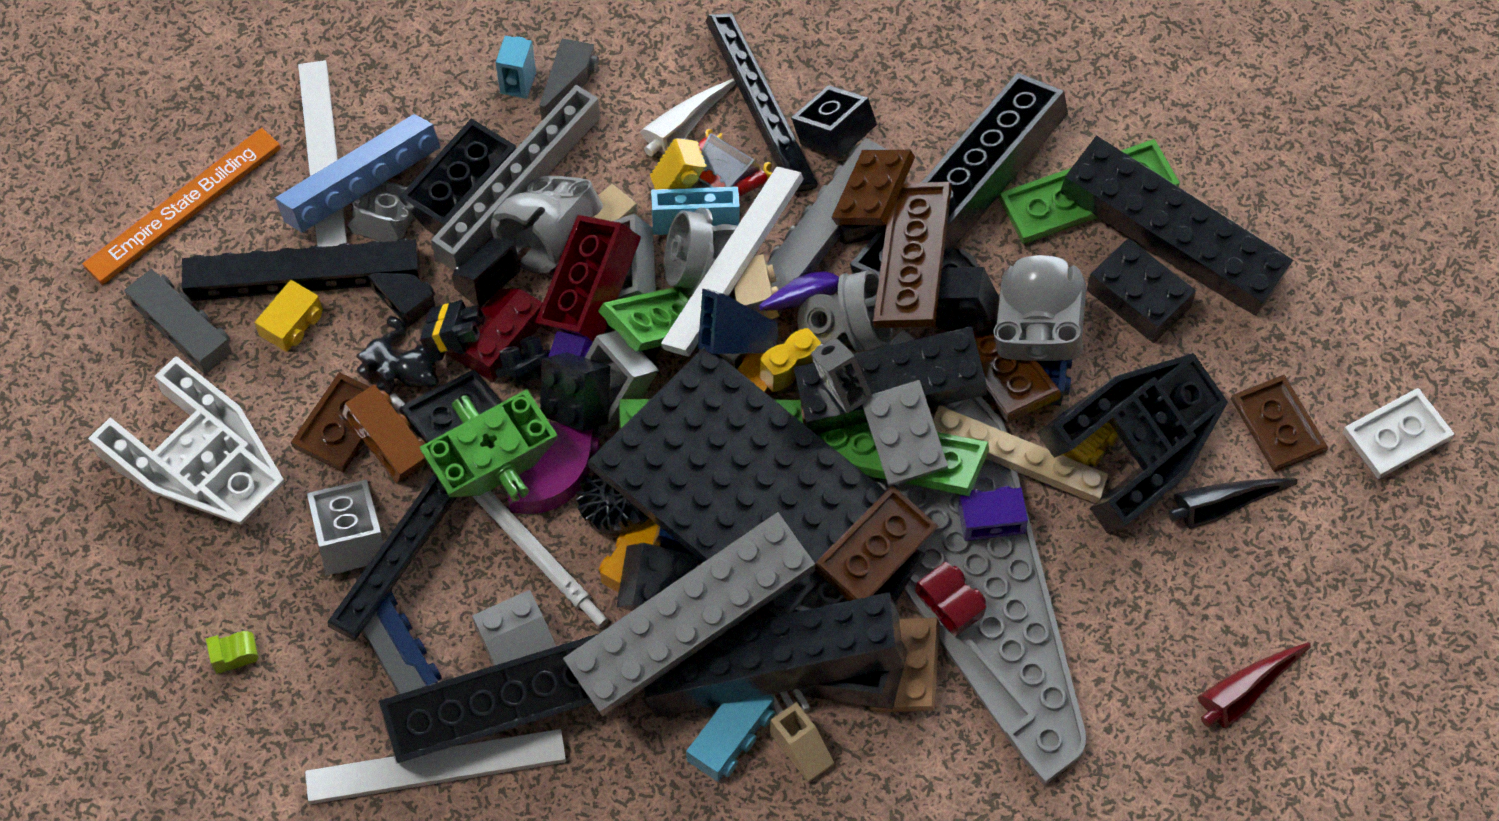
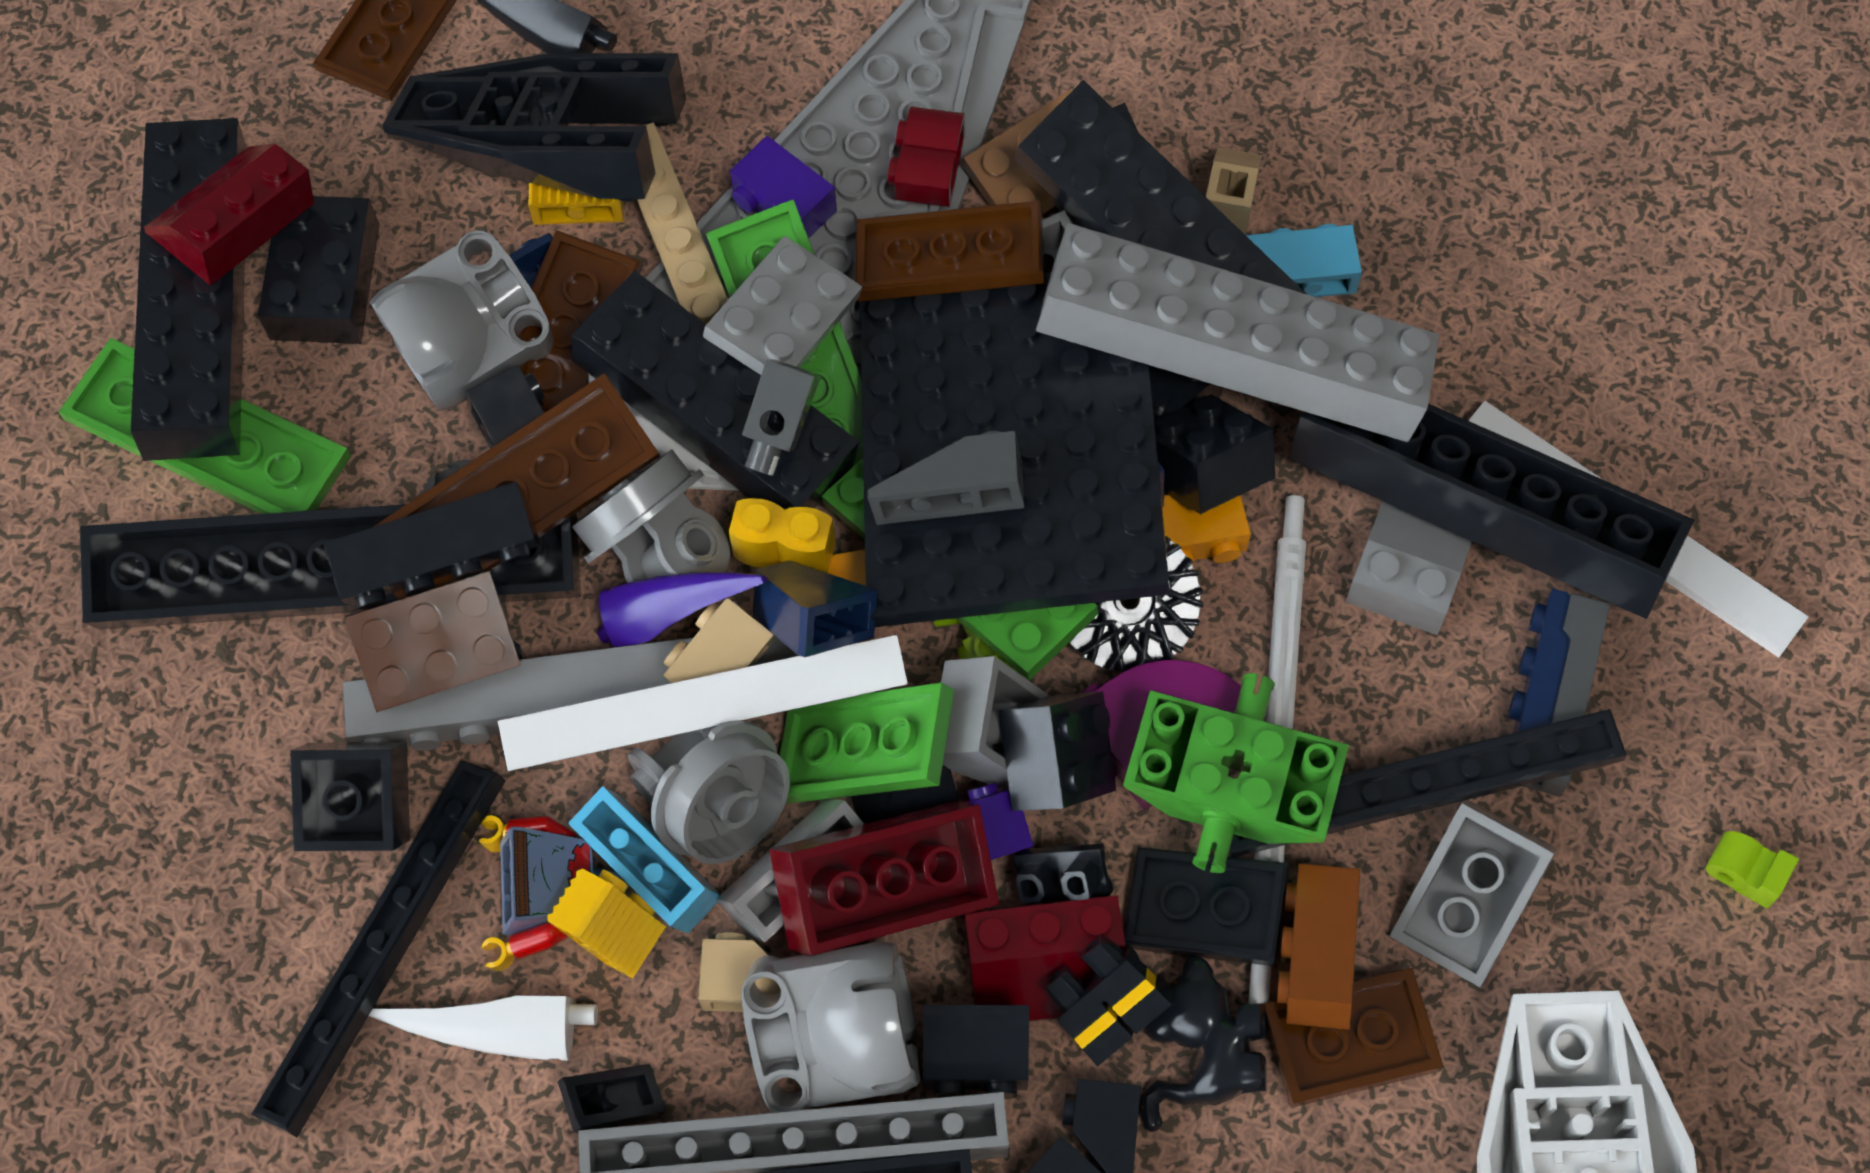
camera: 130 degrees left, 5 degrees up
(604, 129) = (612, 1098): none -> black slope
(724, 429) = (961, 479): none -> dark grey slope
(911, 200) = (432, 545): none -> black brick
(1192, 248) = (234, 211): none -> dark red slope

